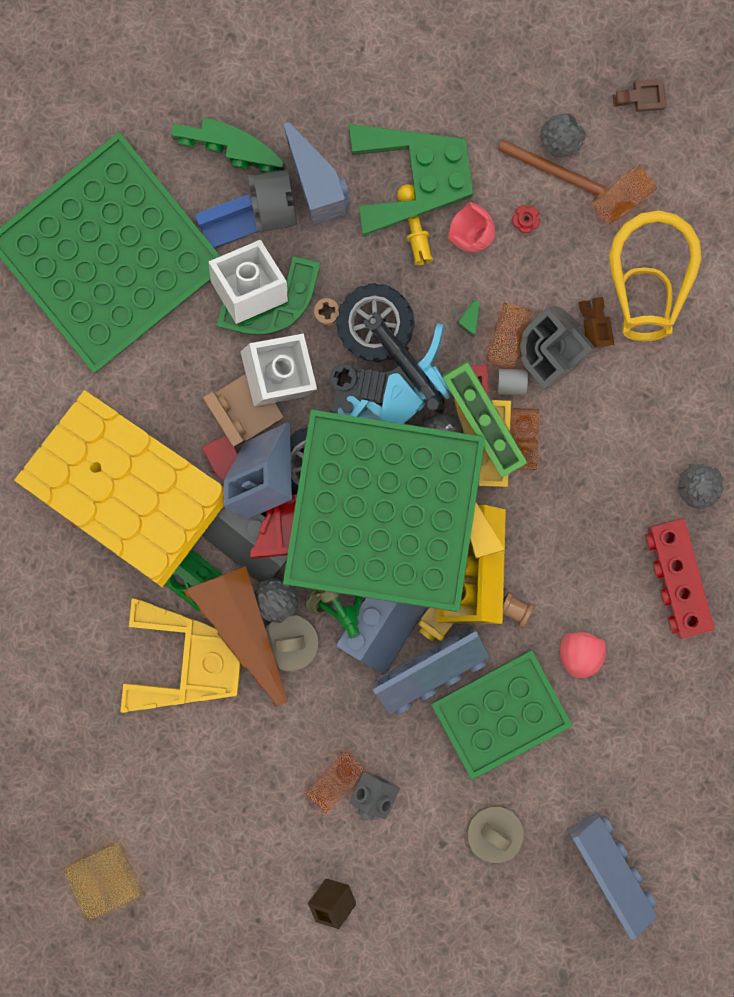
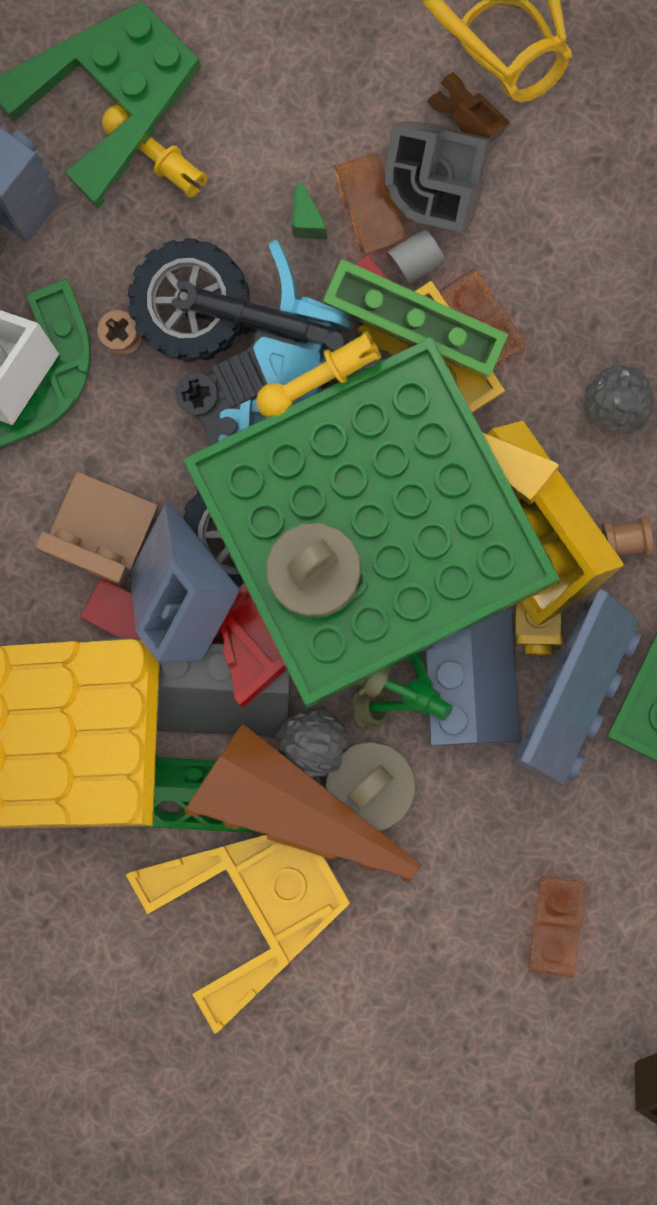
camera: 30 degrees left, 5 degrees down
(278, 370) = (108, 446): white brick -> none
(336, 517) = (313, 570): none -> dark tan tile
(374, 796) = (620, 907): dark grey brick -> none
(381, 411) = (277, 398): none -> yellow pin
(472, 229) = (228, 101): coral hair -> none
(518, 218) = (283, 56): red plate -> none
(563, 534) = (619, 399): none -> dark grey piece

